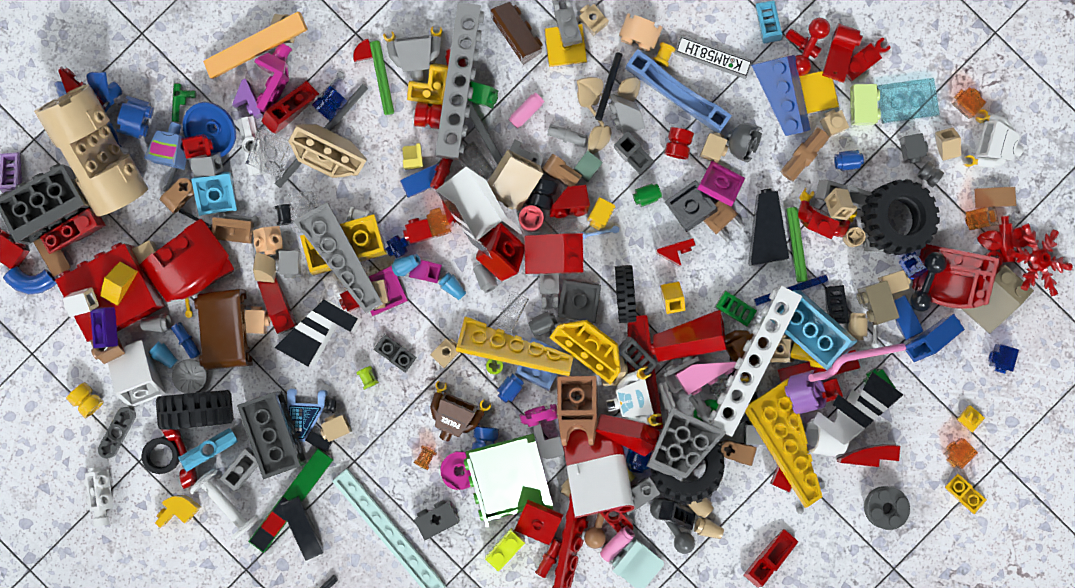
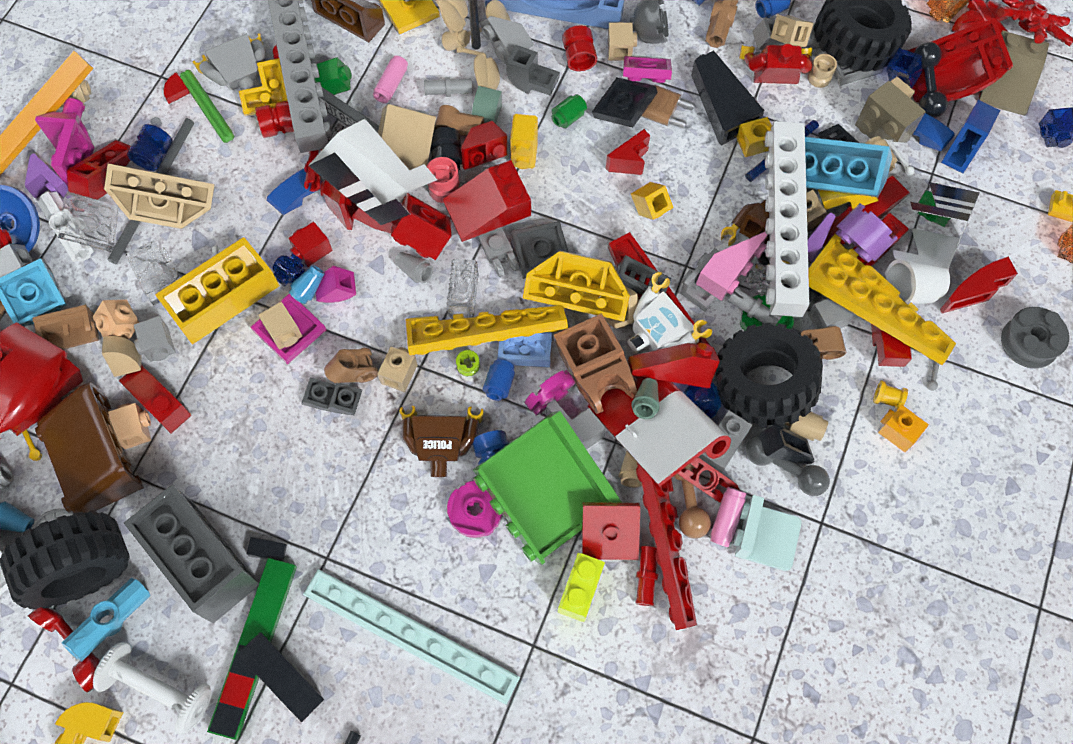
camera: 20 degrees left, 20 degrees down
(146, 456) = (19, 651): black tyre -> none
(185, 340) = (37, 487): blue axle -> none
(240, 470) = (163, 627): light grey brick -> none
(283, 214) = (130, 287): black bush -> none
(304, 414) = (236, 522): flag -> none
(314, 331) = (212, 400): black sticker -> none
(330, 404) = (266, 492): black bush -> none
(331, 243) = (202, 285): light grey wing -> none
(335, 427) = (283, 519): tan brick -> none
(348, 302) = (252, 349): red brick -> none
(367, 377) = (305, 438): lime bush -> none
(413, 157) = (274, 171): light yellow panel -> none
(416, 340) = (351, 366): none -> medium nougat piece
(425, 457) = (421, 509): clear orange bush -> none
(438, 223) = (333, 227): clear orange brick -> none
(448, 519) = (466, 602): dark grey brick -> none
(452, 286) = (375, 290): dark azure cone -> none
(542, 323) = (507, 289): dark grey brick -> none
(596, 453) = (646, 400): none -> sand green cone
(615, 229) = (548, 163): light blue hinge -> none
(625, 293) = (594, 208): black tyre -> none
(666, 396) = (699, 314): white axle -> none
(683, 444) = (751, 336): light grey wedge -> none
(691, 338) = (696, 234): red slope -> none
(707, 528) = (833, 451): tan cone -> none
(719, 305) = (724, 181): green slope -> none
(761, 532) = (902, 427): none -> light orange brick
(765, 507) = (890, 395): none -> yellow bush
(767, 275) = (748, 136): none -> yellow brick
(770, 558) = (932, 458): red slope -> none
(773, 377) = (818, 237): none -> medium lavender slope
(796, 244) = (770, 110): bright green axle -> none
(854, 356) = (886, 182): bright pink piece -> none

